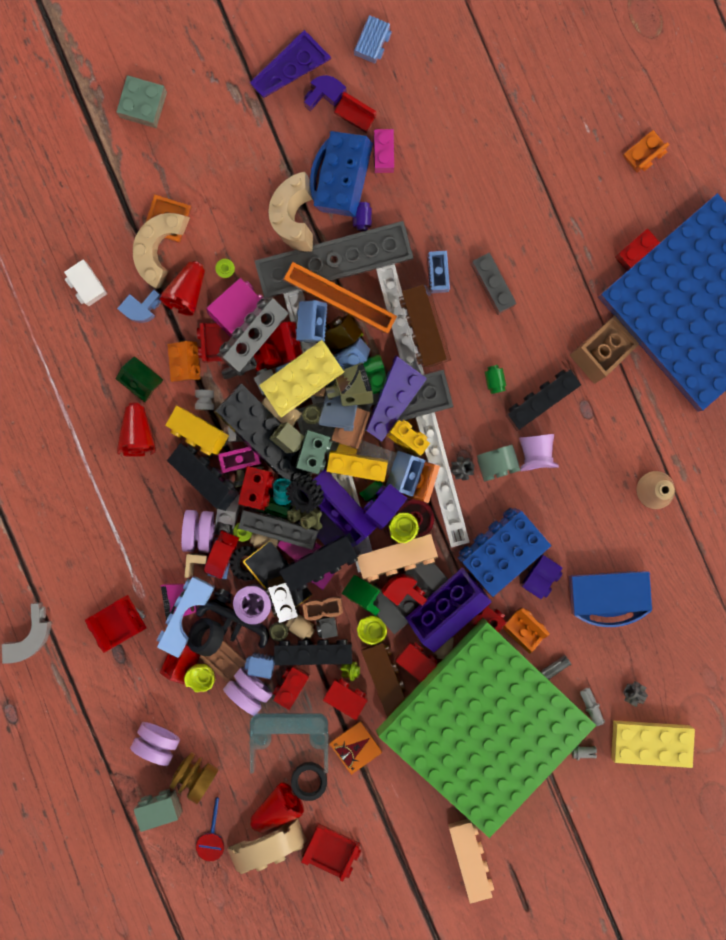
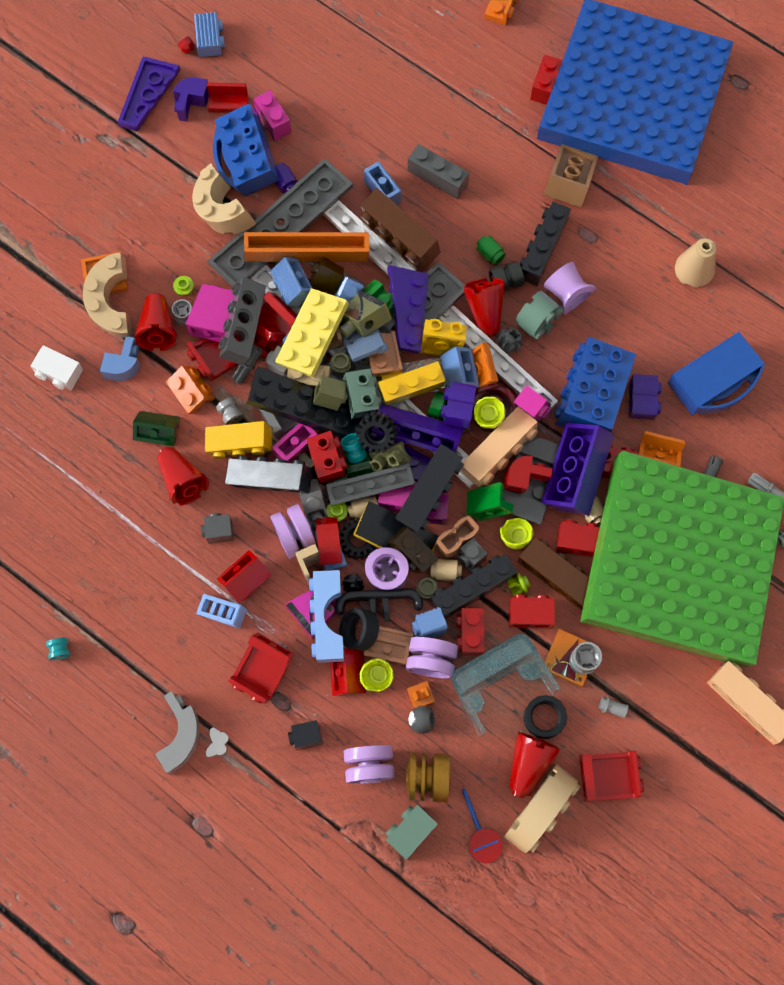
camera: 30 degrees left, 15 degrees down
(56, 657) = (218, 746): none -> white sticker
(115, 555) = (234, 615): none -> light blue slope
(121, 692) = (305, 735): none -> black brick
(141, 101) = (25, 186): sand green brick -> none
(141, 544) = (244, 577): none -> red brick
(142, 492) = (217, 528): none -> dark grey brick
(212, 288) = (179, 309): none -> light grey wheel
(215, 731) = (421, 719): none -> dark grey piece
(225, 710) = (421, 694): none -> orange tile
(348, 39) = (186, 45): none -> red hinge
(362, 800) = (613, 707): none -> light grey pin
(363, 759) = (585, 658): none -> light grey wheel
(444, 539) = (533, 403): none -> dark pink brick
(460, 427) = (486, 303): none -> red cone
(493, 412) = (511, 274): none -> pearl dark grey wheel

